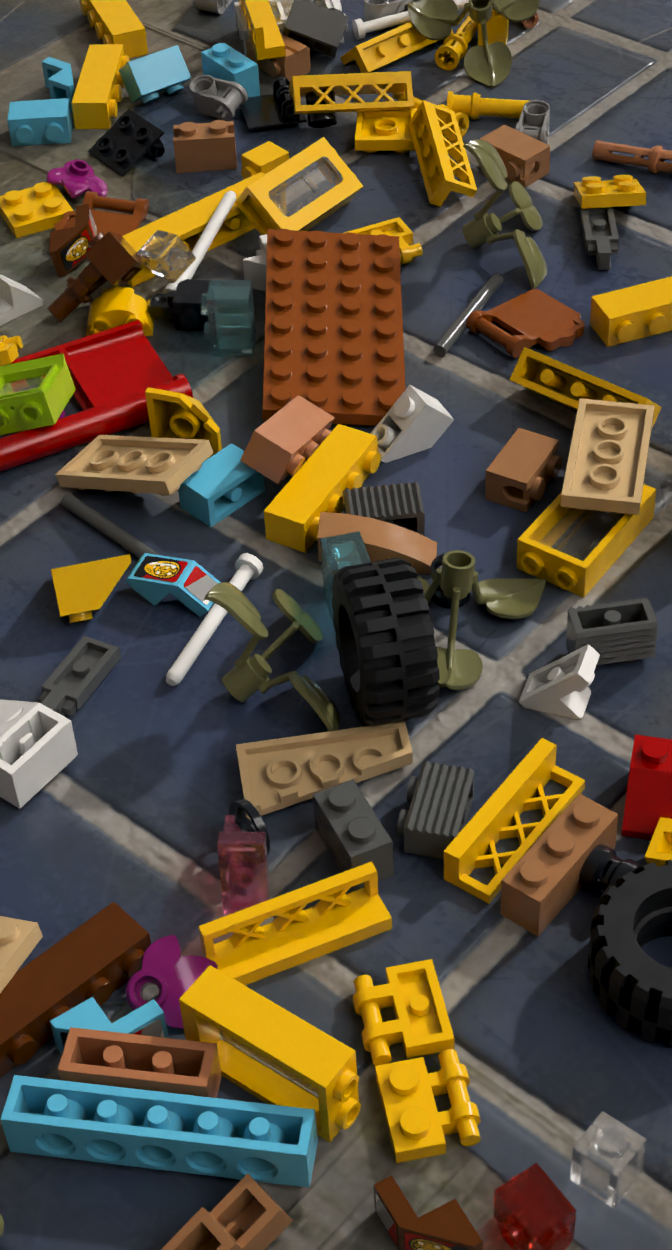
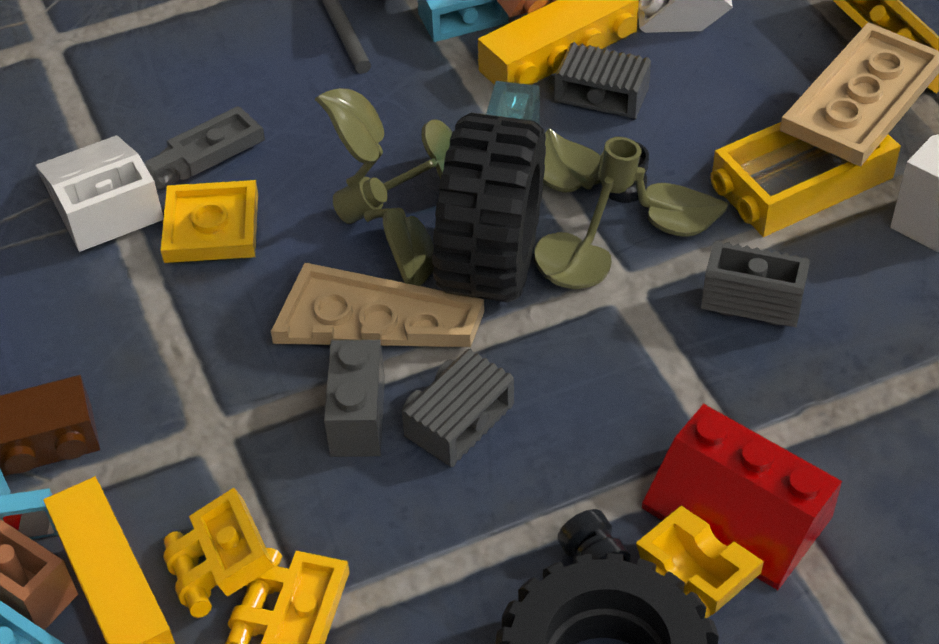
camera: 25 degrees right, 5 degrees up
(87, 586) = (268, 58): yellow slope -> none
(125, 741) = (210, 221): none -> yellow plate
(170, 973) = (90, 458): magenta plate -> none
(185, 579) = (355, 72): slope -> none
(243, 858) = (217, 383): clear pink piece -> none
(247, 568) = (436, 93): white bar -> none
(297, 933) = (265, 483): yellow fence -> none
(331, 980) = (231, 548): none -> yellow plate
(381, 539) = (575, 108): medium nougat slope -> none
(500, 811) = (521, 432): yellow fence -> none
(522, 470) = (772, 80): medium nougat brick -> none
(552, 867) = (526, 516): medium nougat brick -> none
(562, 685) = (673, 323): white slope -> none

